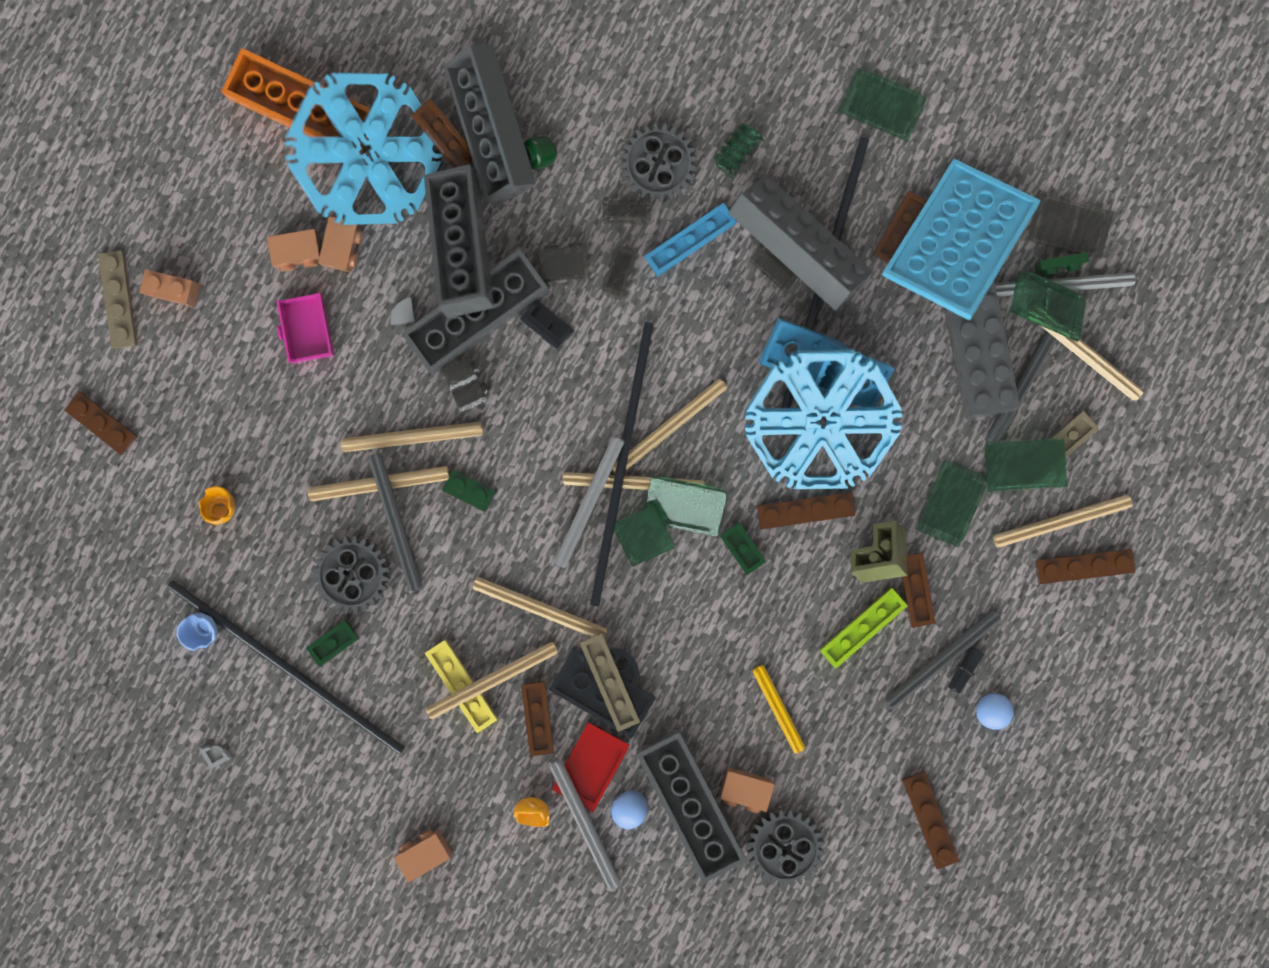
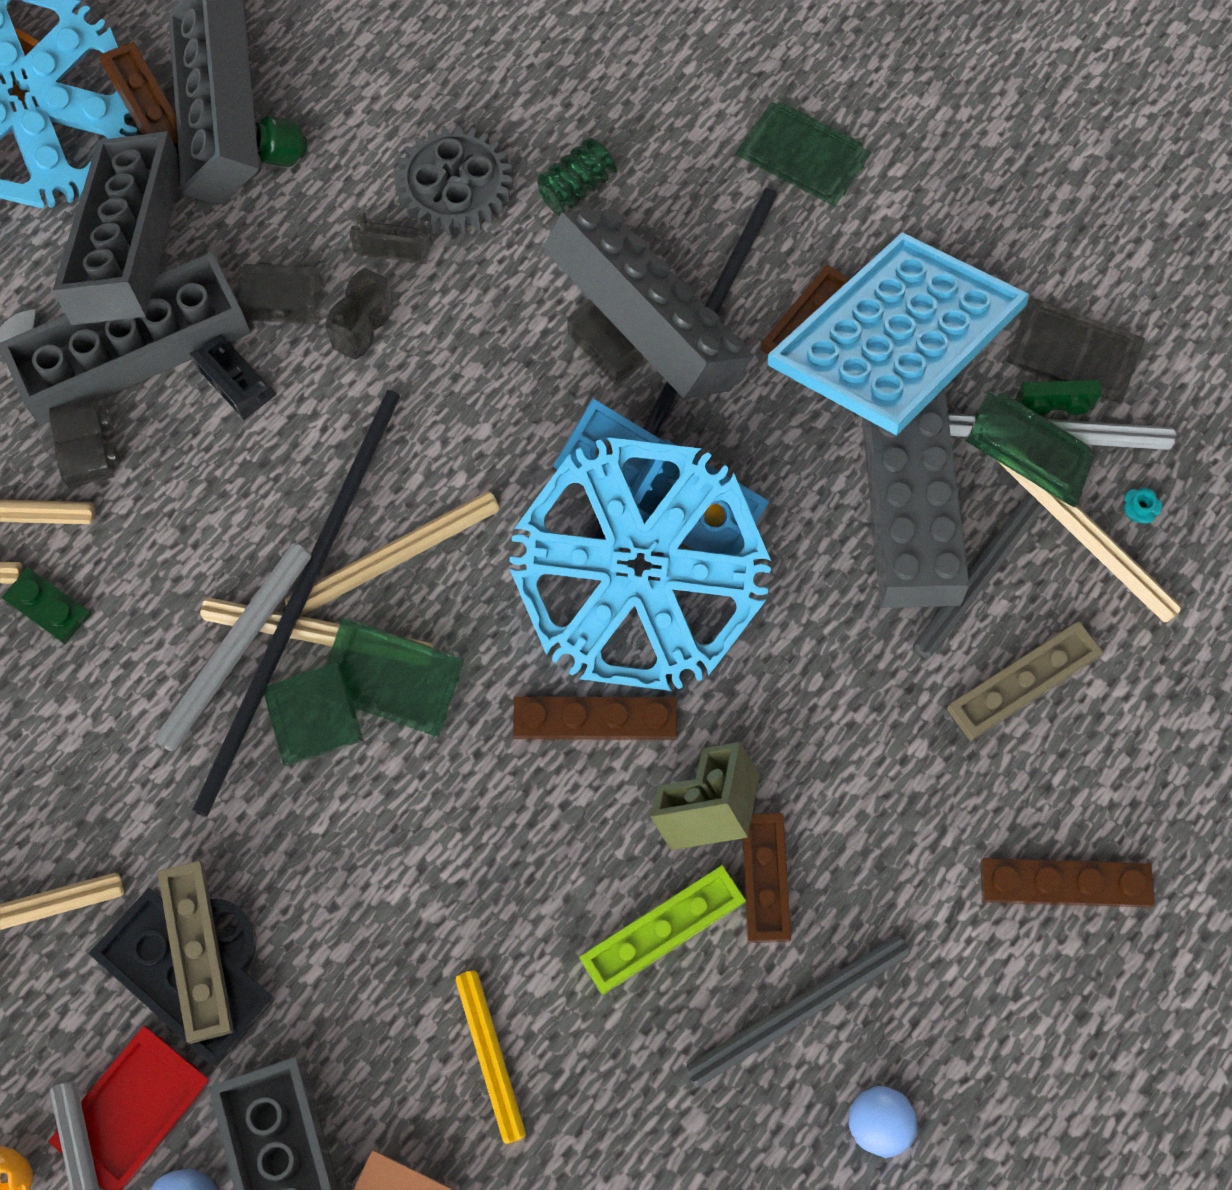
camera: 10 degrees right, 20 degrees down
(537, 607) = (106, 810): tan axle -> none
(537, 718) = (56, 1004): reddish brown plate -> none
(690, 240) = (481, 289): dark azure plate -> none
(742, 548) = (476, 762): dark green plate -> none
(951, 503) = (843, 744): clear green piece -> none
(965, 670) = (837, 1034): black axle -> none
(1026, 465) = (975, 692): clear green piece -> none
(1062, 521) = (1032, 799): tan axle -> none
(1111, 331) = (1138, 513): none -> teal plate

